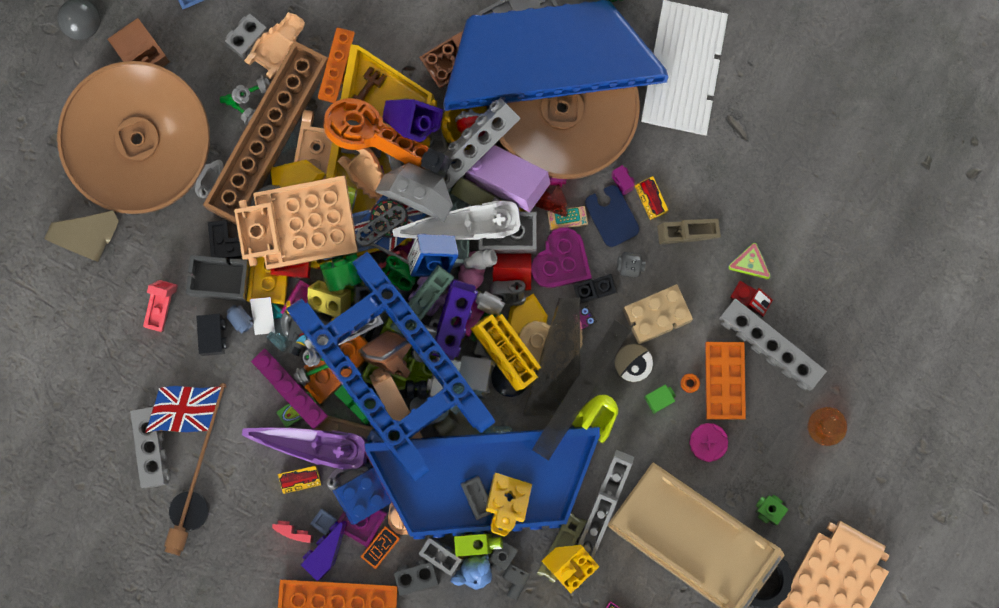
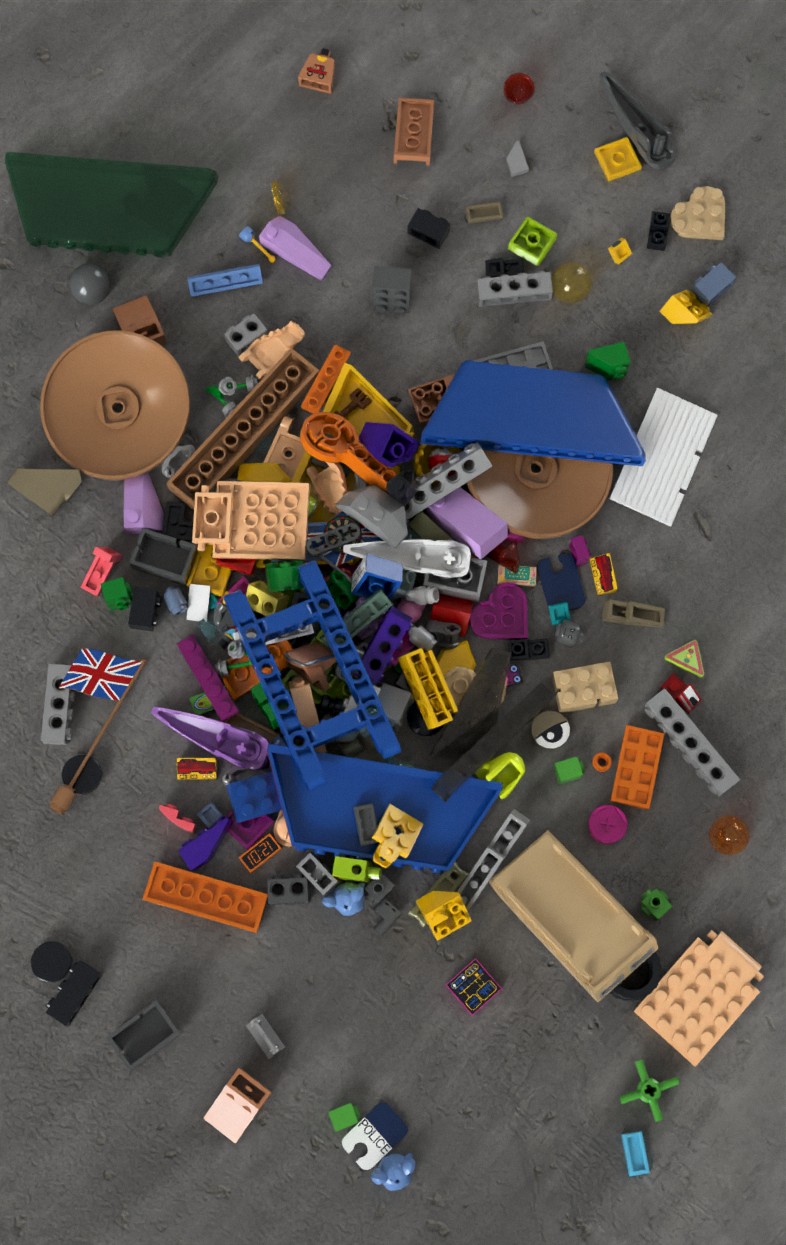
camera: 10 degrees right, 5 degrees down
(181, 326) = (117, 594): none -> green brick
(184, 232) = (141, 506): none -> lavender wedge
(616, 246) = (559, 612): none -> teal tile

